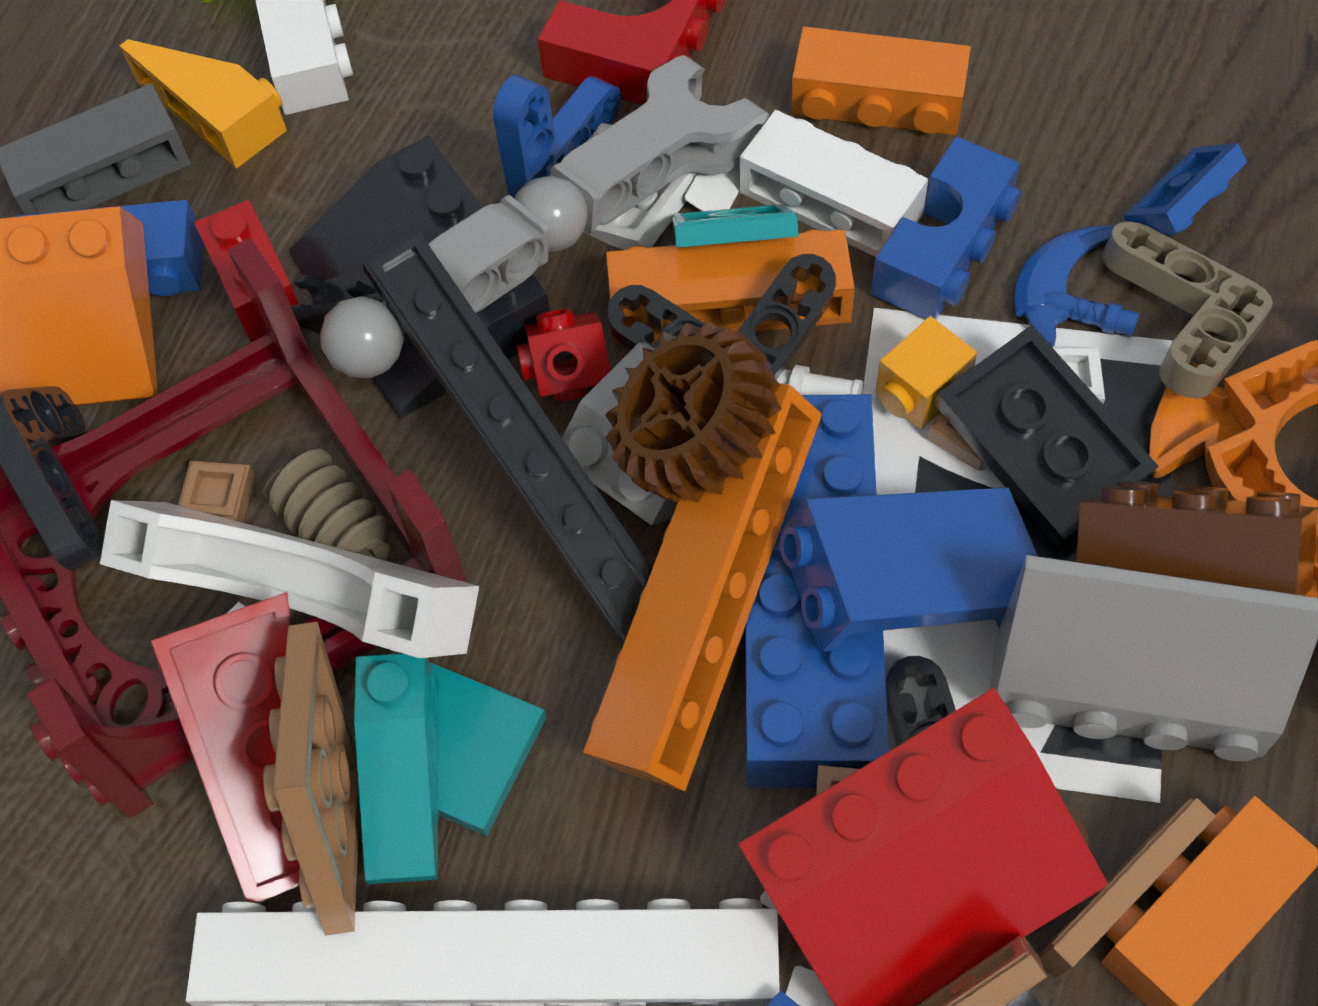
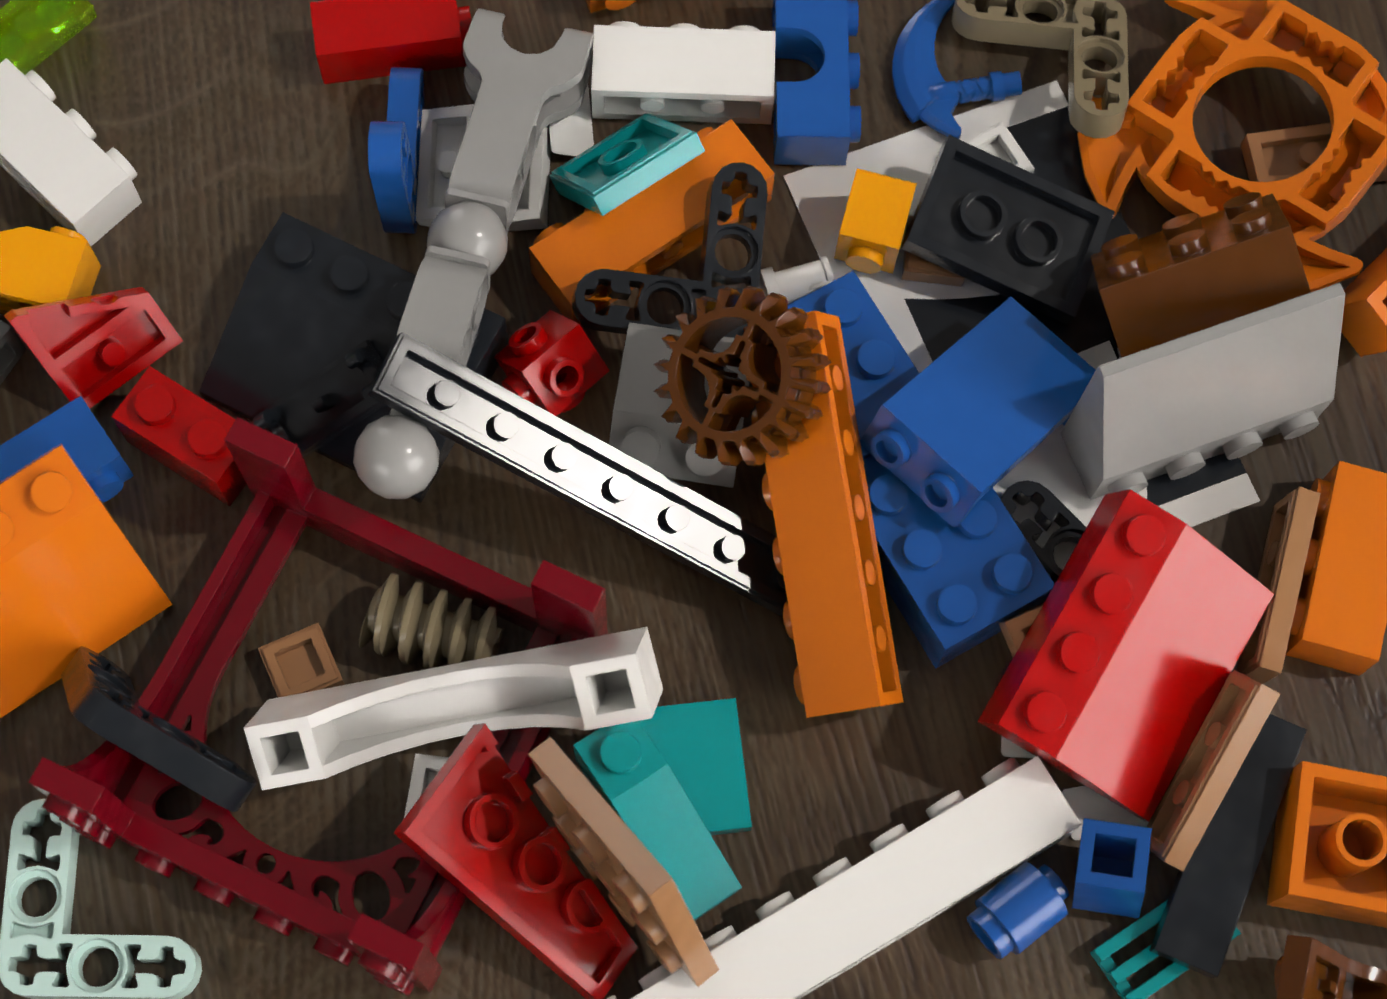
camera: 40 degrees left, 10 degrees up
(231, 166) = (95, 340): none -> red wing

